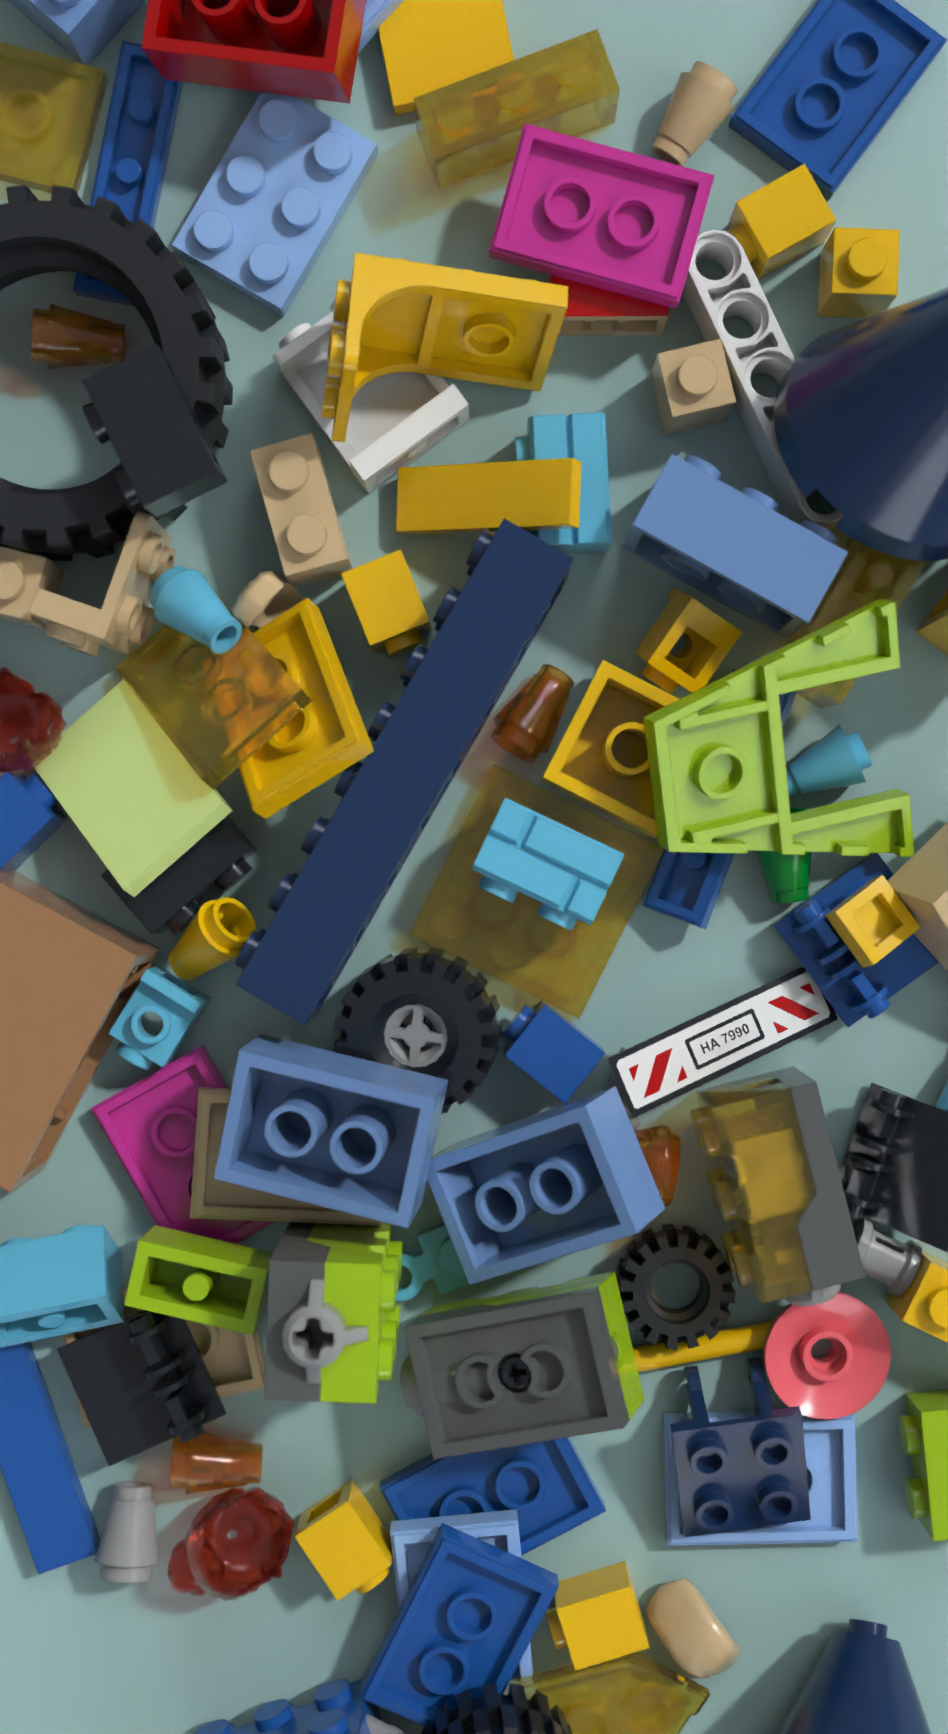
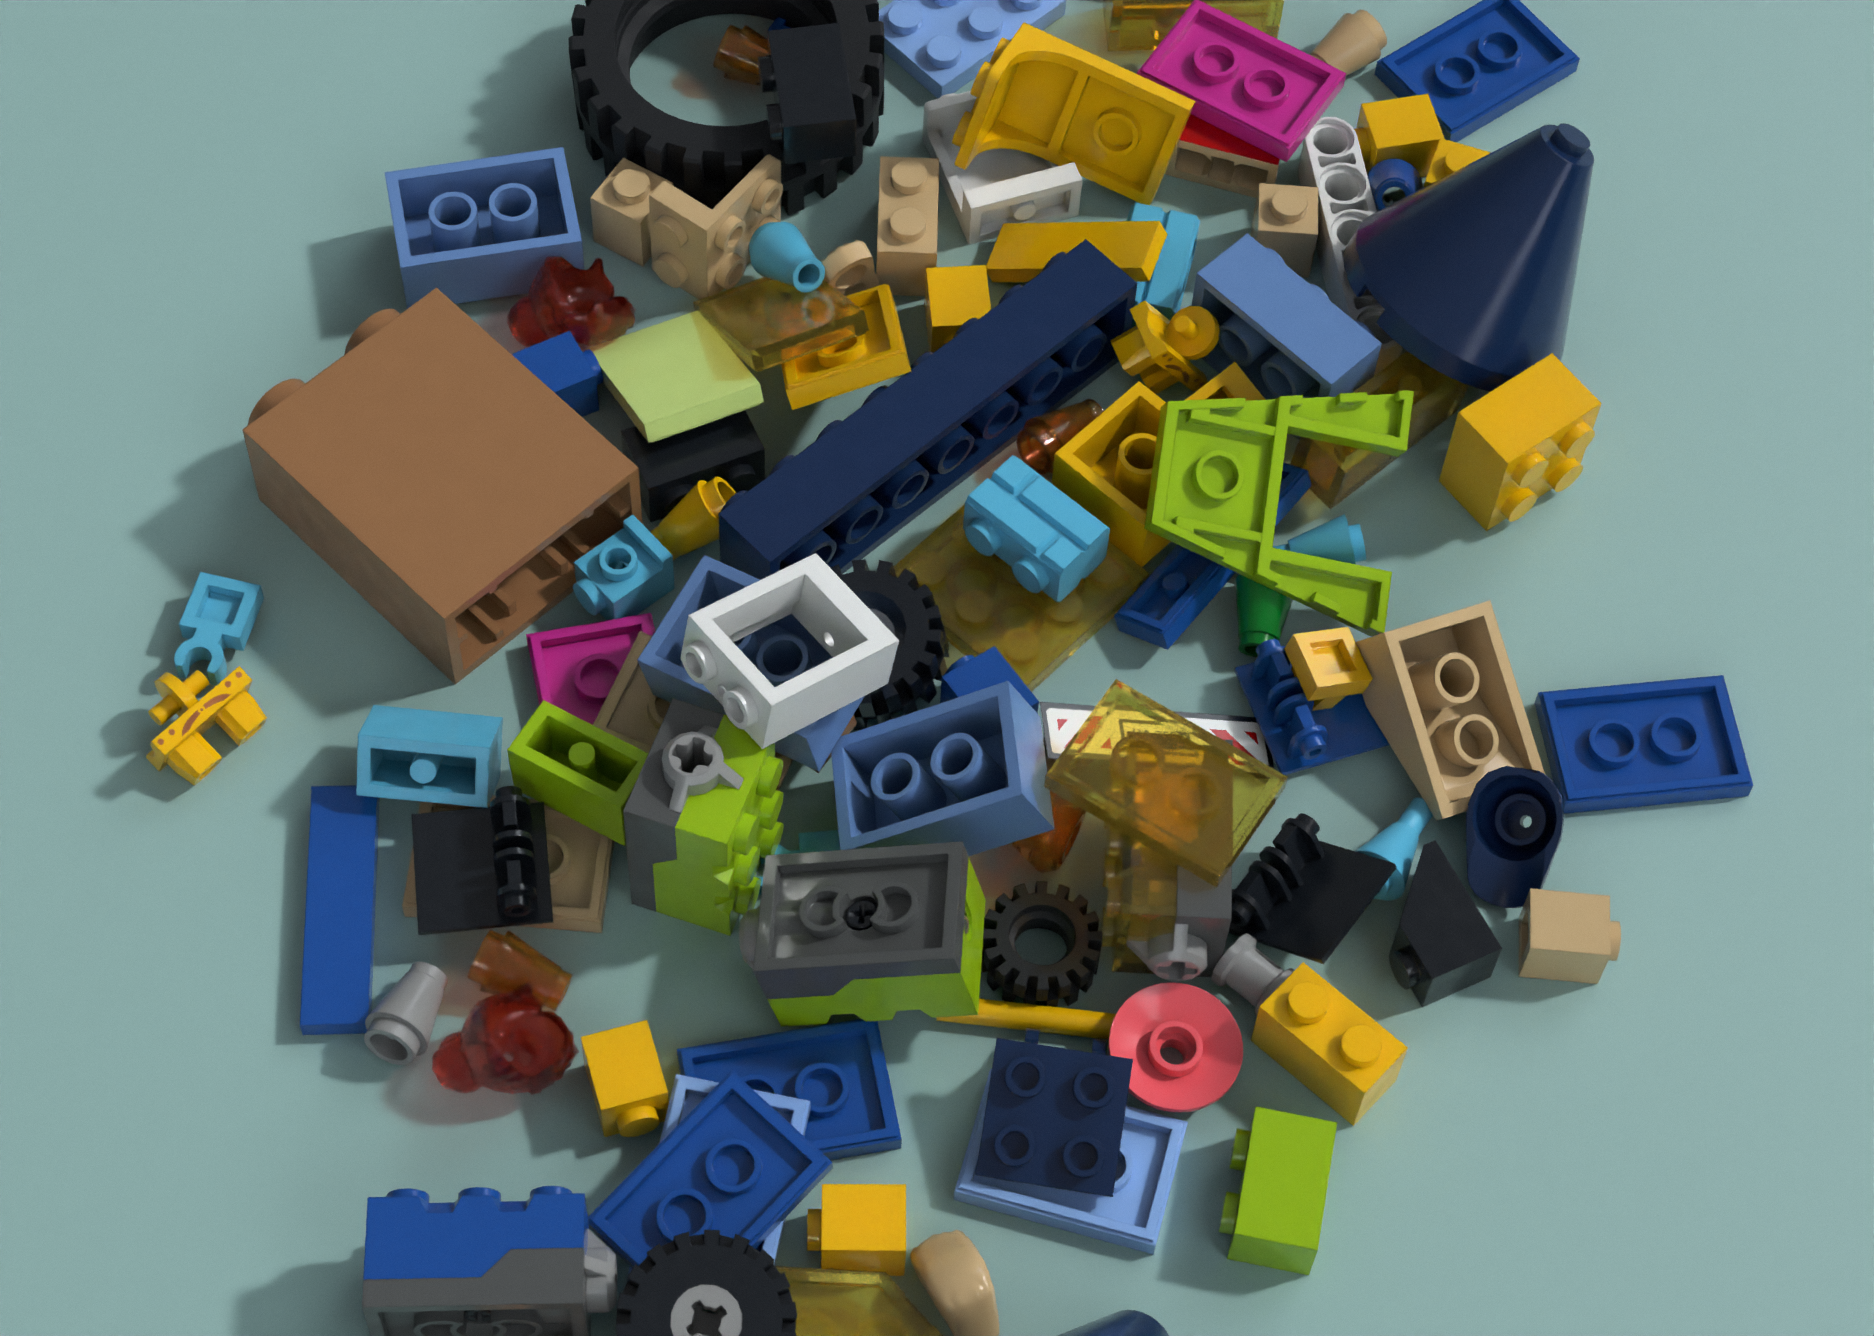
camera: 15 degrees right, 30 degrees down
(407, 1126) = (829, 611): none -> white window
(616, 590) = (1163, 347): none -> yellow hips
(767, 1158) = (1165, 782): none -> clear yellow tile
(795, 298) = (1393, 174): none -> blue cone

